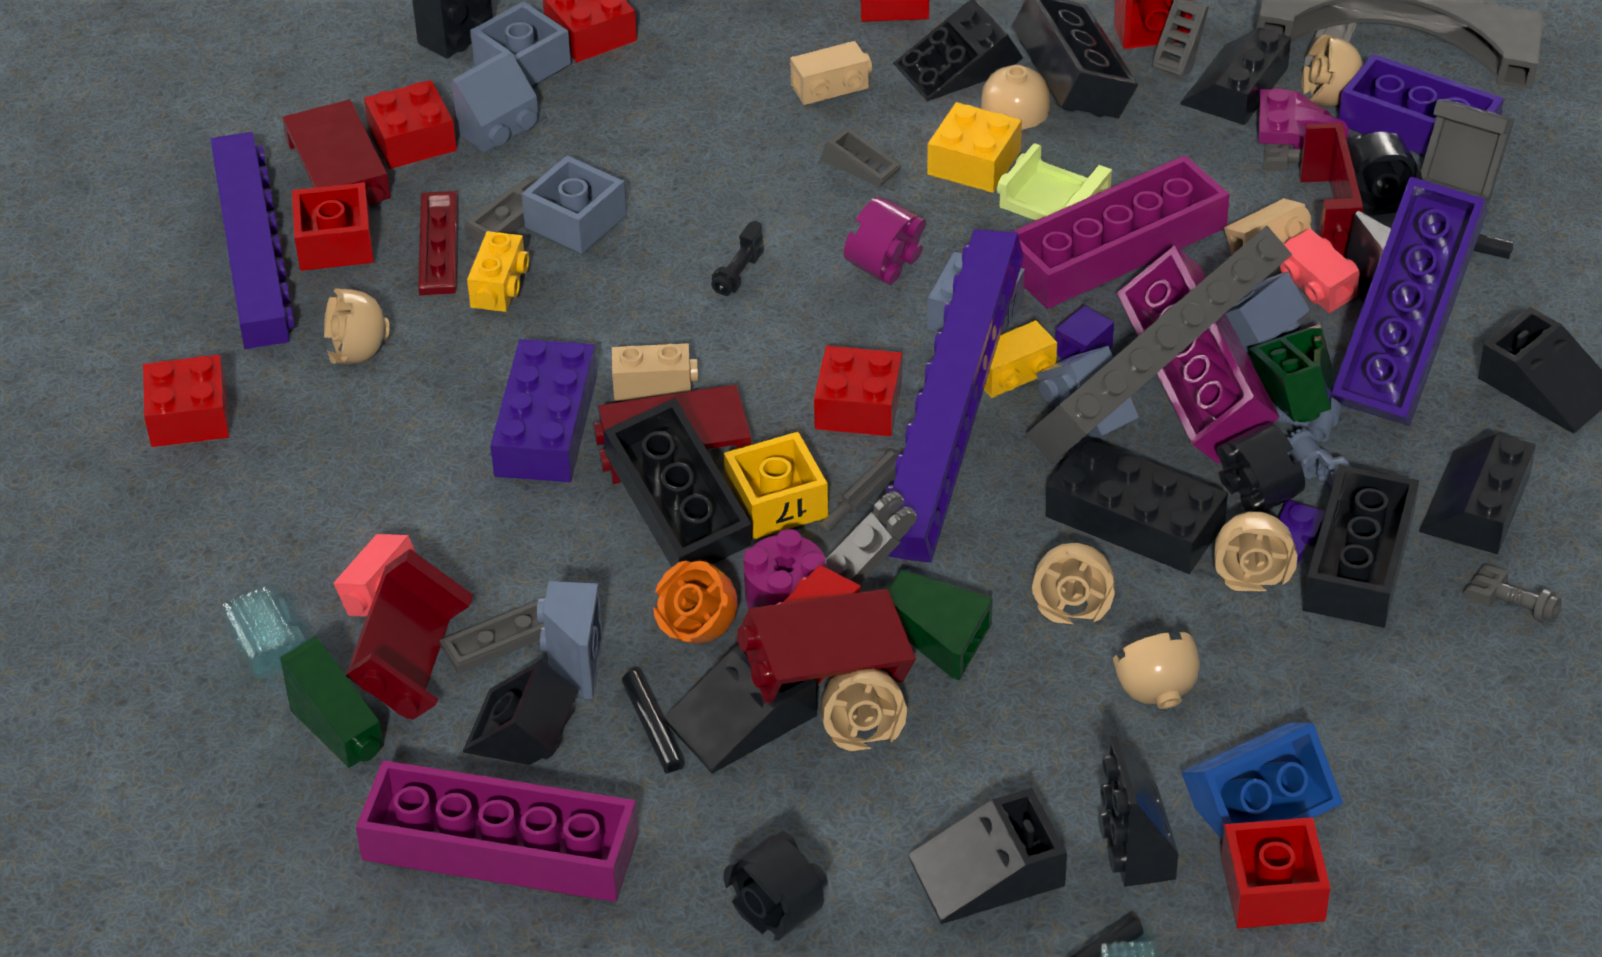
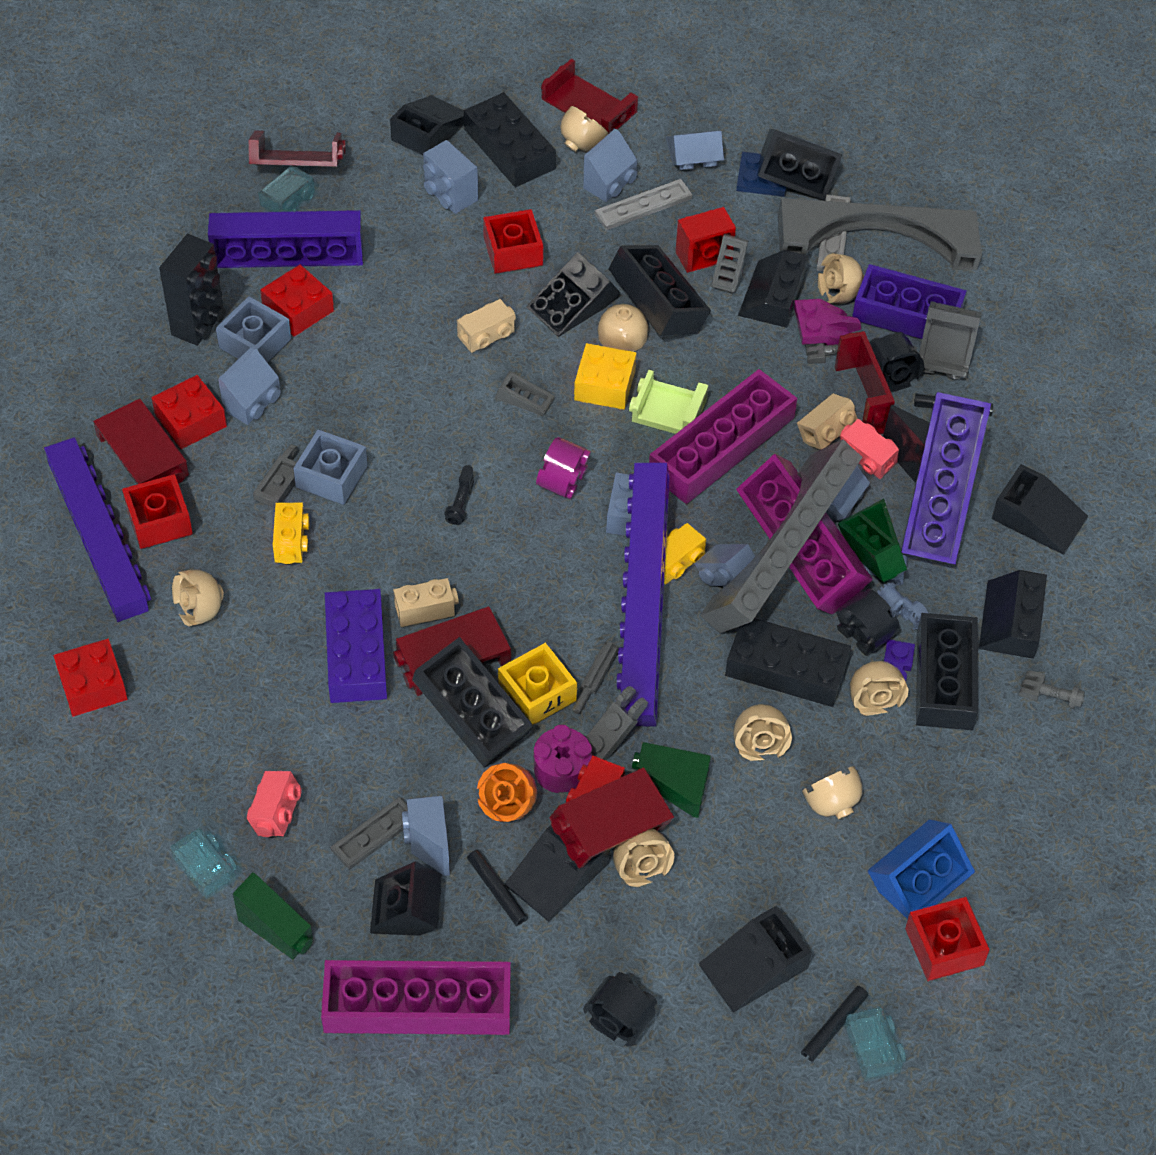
camera: 15 degrees left, 10 degrees up
(405, 633) = (307, 851): dark red panel -> none
(438, 243) = (236, 510): dark red tile -> none
(858, 391) = (574, 595): red brick -> none
(1083, 332) = (720, 526): dark purple brick -> none
(1135, 821) = (848, 918): black slope -> none

